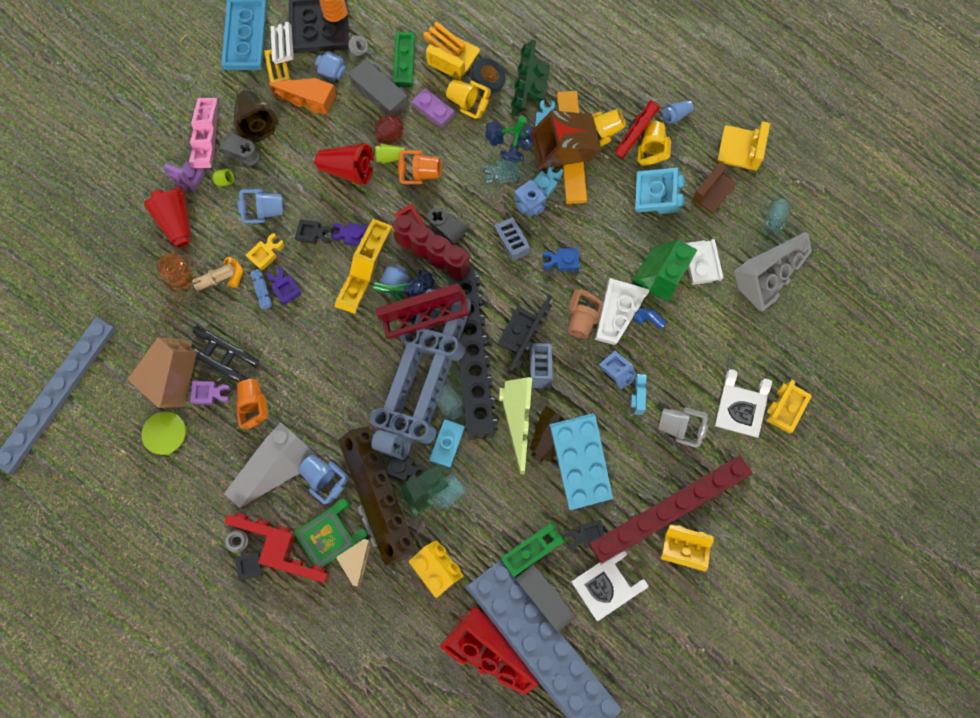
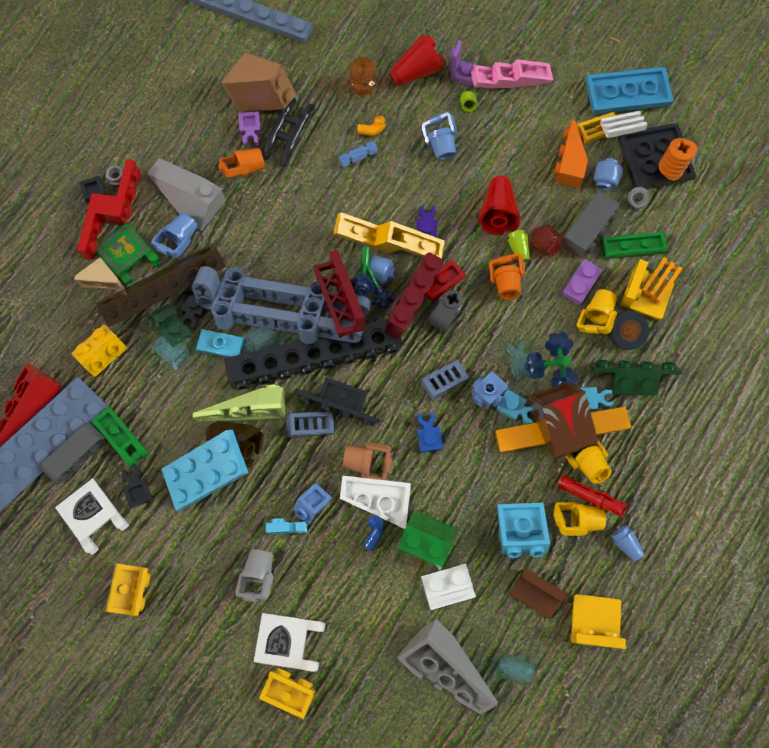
camera: 80 degrees right, 0 degrees up
(163, 433) = (210, 99): lime dish -> none
(213, 277) = (362, 110): tan axle -> none
(239, 149) = (499, 109): dark grey piece -> none
(253, 117) = (535, 112): dark brown cone -> none
(263, 253) = (394, 148): yellow plate -> none
(284, 287) = (361, 173): dark purple plate -> none
(311, 231) = (421, 187): black plate -> none
(670, 509) = (167, 572): dark red plate -> none

